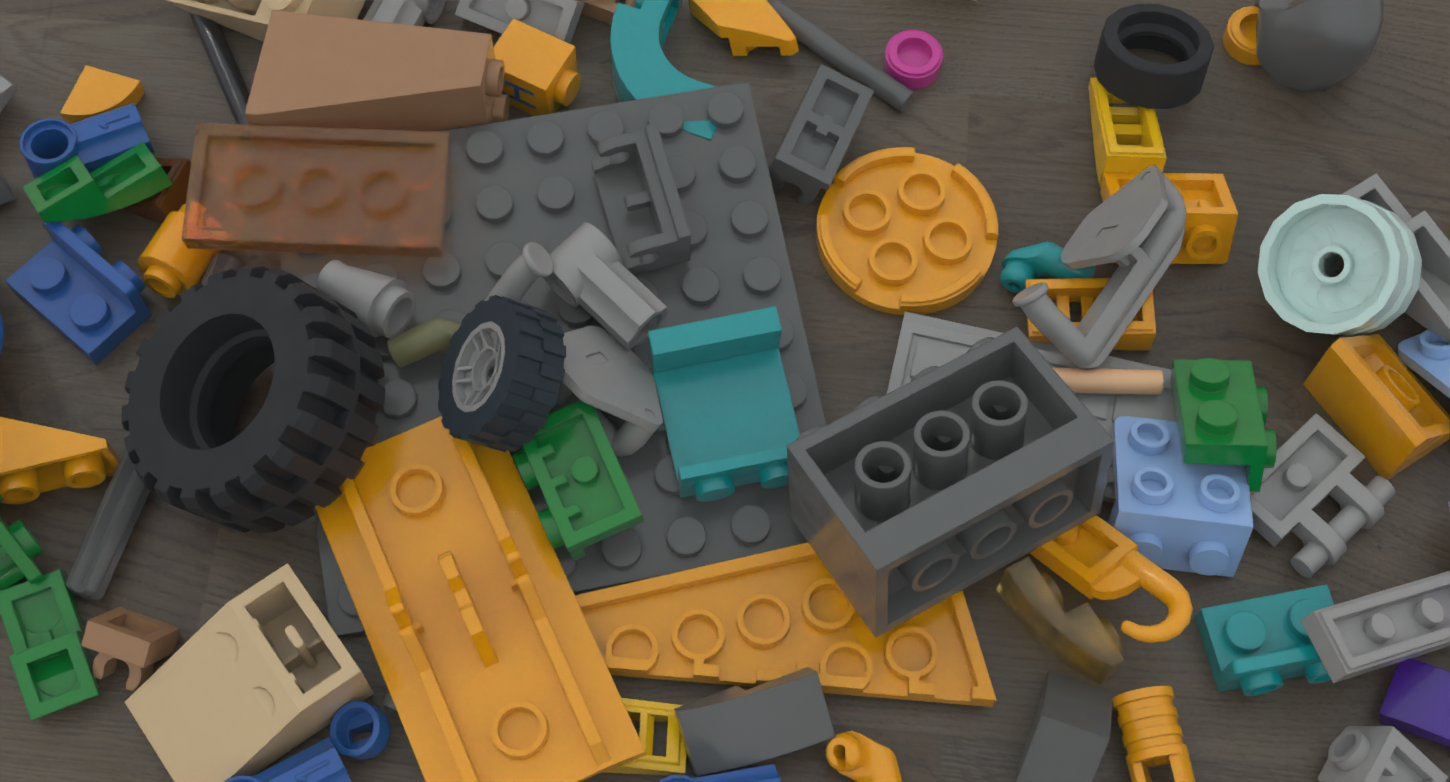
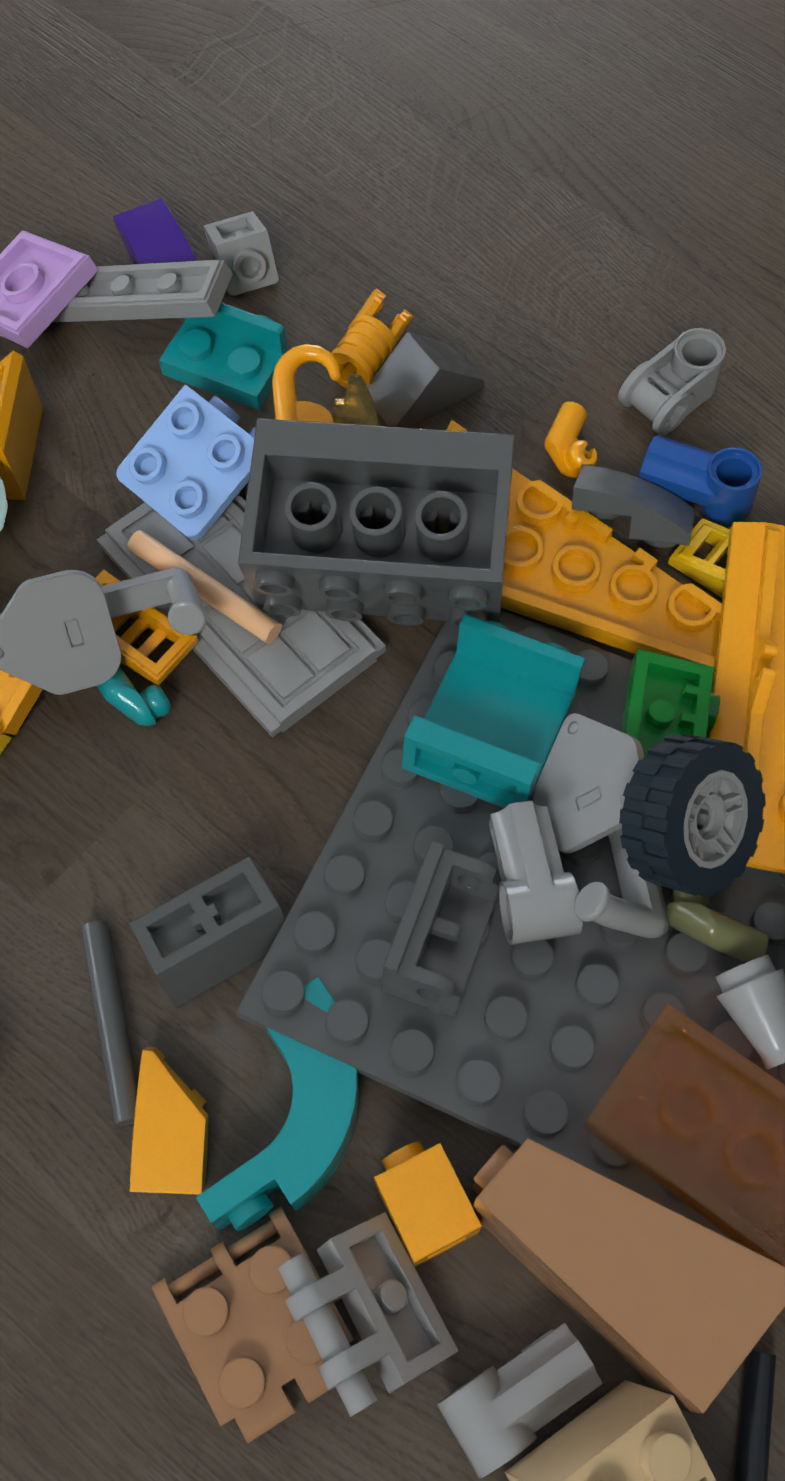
camera: 140 degrees left, 0 degrees up
(906, 231) = (203, 803): light orange tile -> none
(913, 58) = (48, 968): dark pink tile -> none
(1223, 416) = (123, 474): green bracket -> none
(1305, 472) = (102, 415): light grey plate -> none

